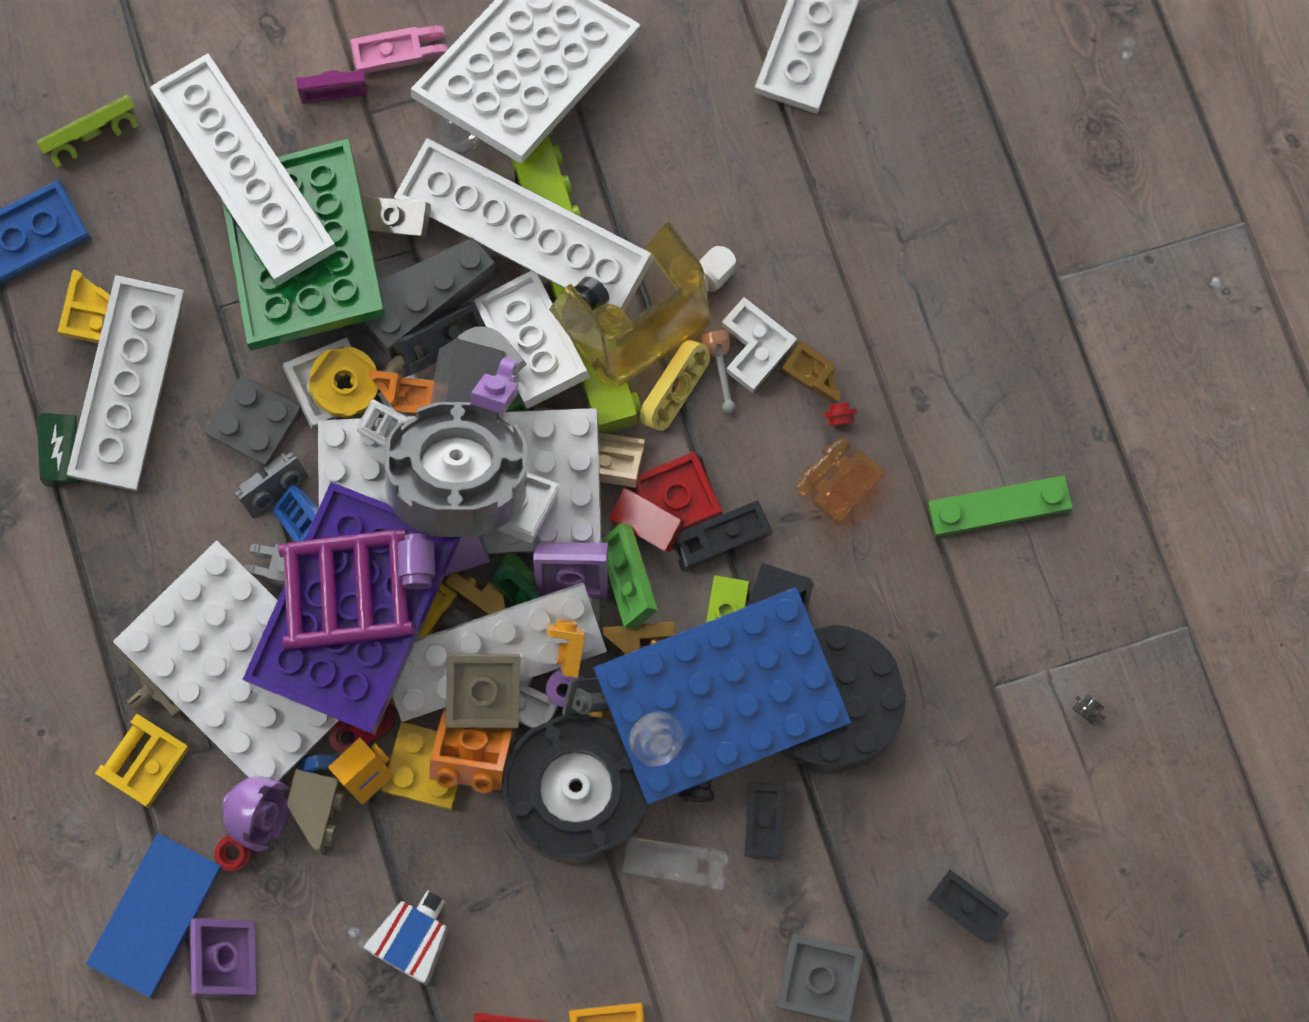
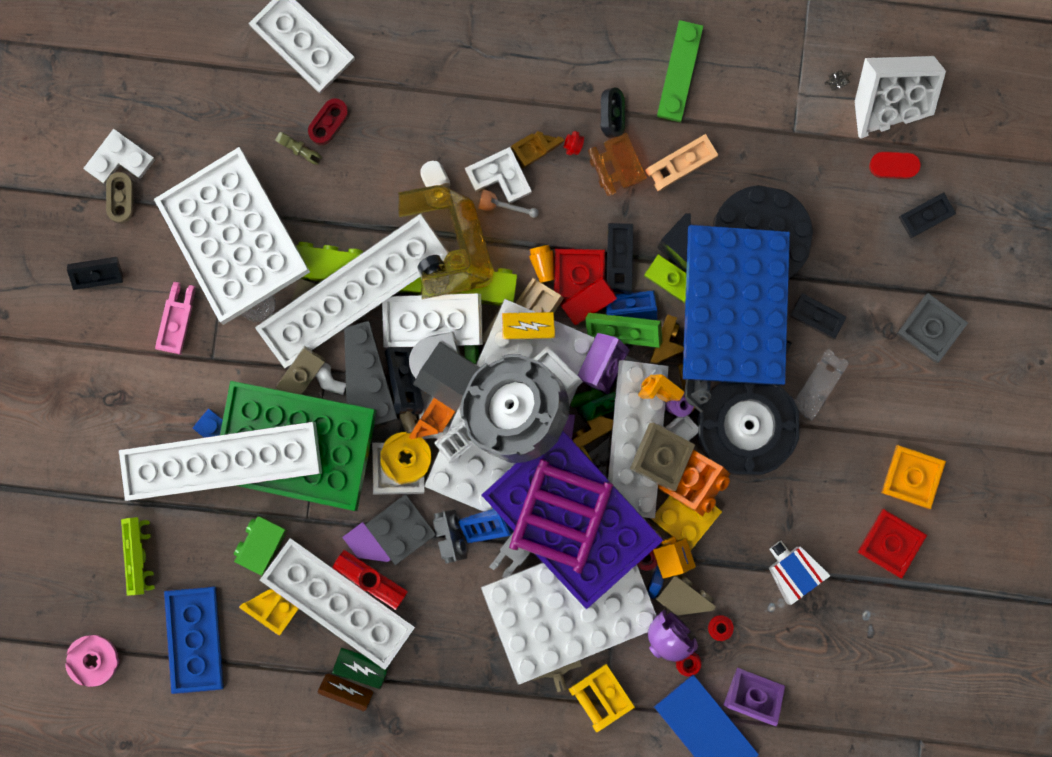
camera: 70 degrees left, 10 degrees up
(20, 443) = (345, 692): none -> reddish brown slope
(162, 261) = (260, 545): none -> bright green hinge
(170, 429) = (384, 589): none -> red piece
(216, 385) = (364, 544): none -> medium lavender tile
(286, 140) = (209, 424): none -> blue plate
(299, 885) = (713, 631): none -> red plate
(332, 86) = (182, 375): magenta plate -> none
(402, 250) = (327, 382): none -> white arm
(416, 561) = (568, 461): medium lavender brick -> none
(496, 391) = (470, 358): medium lavender plate -> none
(574, 448) = (528, 325): none -> yellow slope
(656, 739) = (753, 359): clear plate -> none
(658, 411) = (505, 241): light yellow beam -> none
(668, 583) = (634, 305): none -> blue slope
(670, 443) = (542, 261): none -> light orange cone
(674, 96) = (297, 147): none -> olive piece
(724, 113) = (326, 121): none -> dark red plate
(882, 559) = (682, 162): none -> light nougat plate
(902, 446) = (612, 112): none -> black plate
(1014, 835) = (894, 165): none -> red tile
(1112, 792) = (897, 91): none -> white wedge

